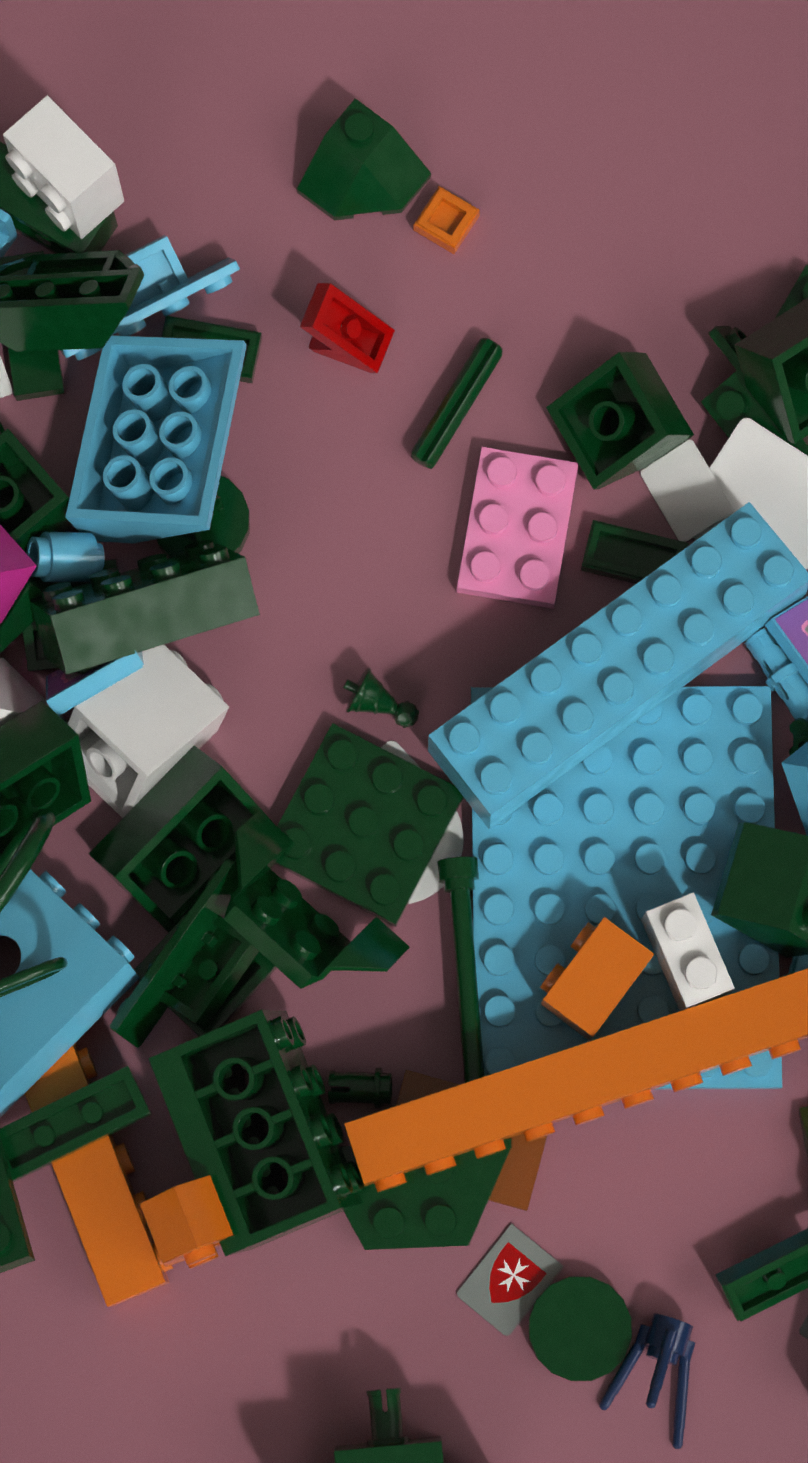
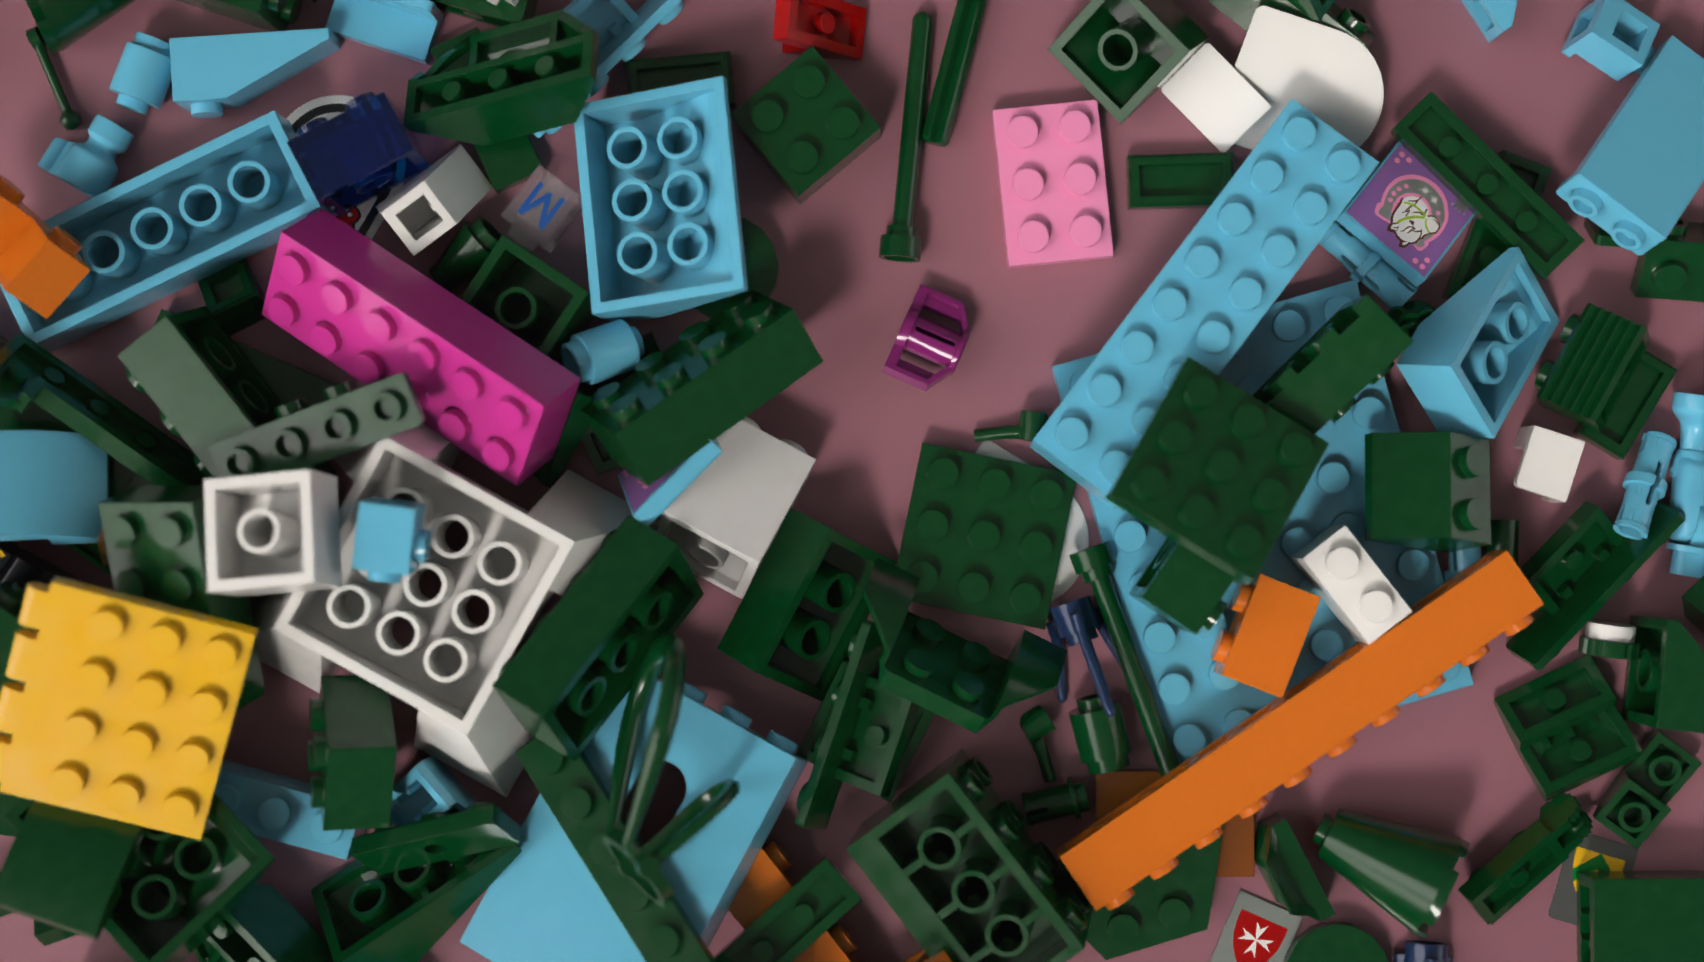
camera: 15 degrees left, 10 degrees up
(50, 423) = (542, 211): none -> clear brick
(309, 413) = (806, 125): none -> dark green brick
(362, 1012) = (1035, 726): none -> dark green hand
(363, 633) = (928, 340): none -> magenta piece
(365, 538) = (901, 238): none -> dark green piece
(372, 697) = (954, 404): dark green piece -> none
(413, 736) = (1029, 426): none -> dark green hand
(420, 1034) = (1100, 739): none -> dark green brick
(426, 925) = (1077, 624): none -> dark blue plant
(544, 894) = (1183, 588): none -> dark green brick
(560, 1213) = (1288, 870): none -> dark green slope
(585, 802) = (1217, 471): none -> dark green plate
(659, 1231) = (1393, 864): none -> dark green cone
(688, 771) = (1335, 365): none -> dark green wedge

